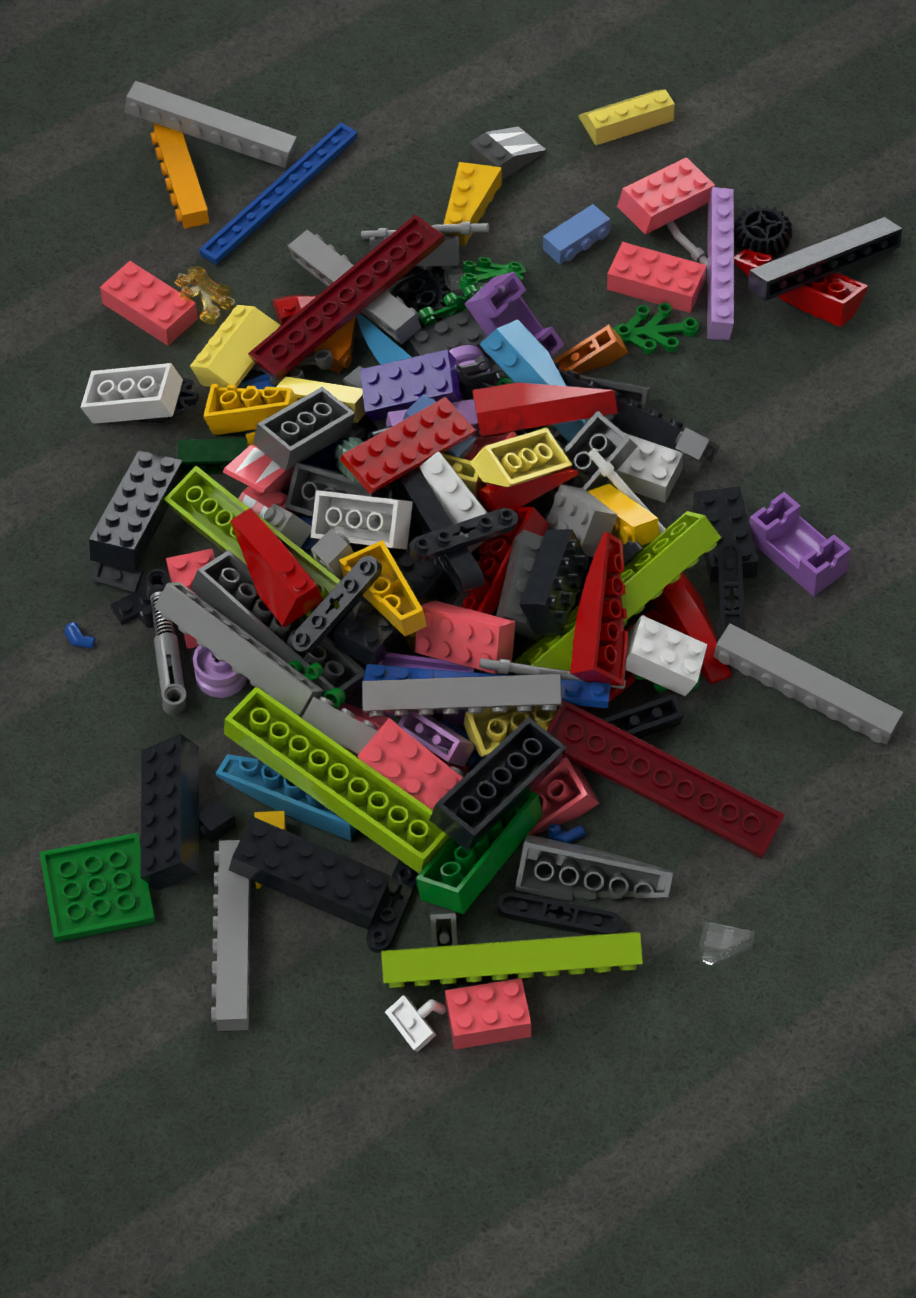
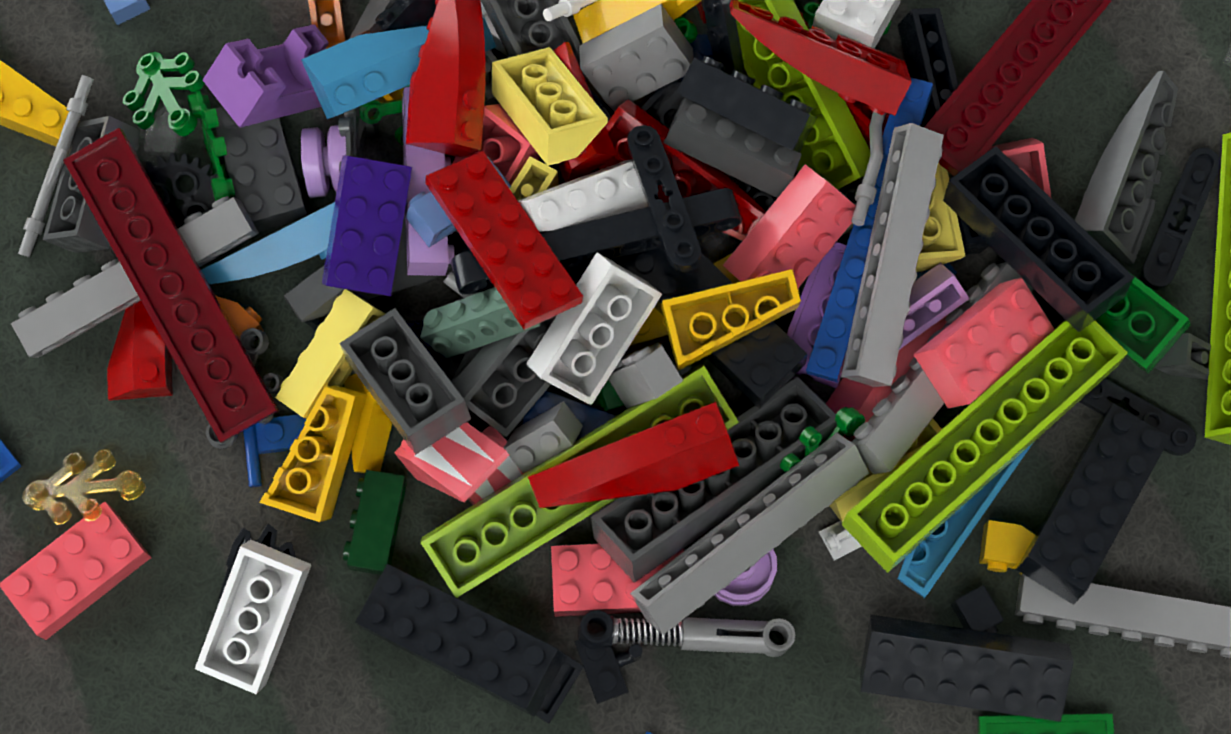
camera: 80 degrees left, 20 degrees up
(226, 354) = (189, 457): light yellow slope -> none
(326, 616) = (728, 355): black piece -> none
(556, 833) = (1067, 187): blue arm -> none

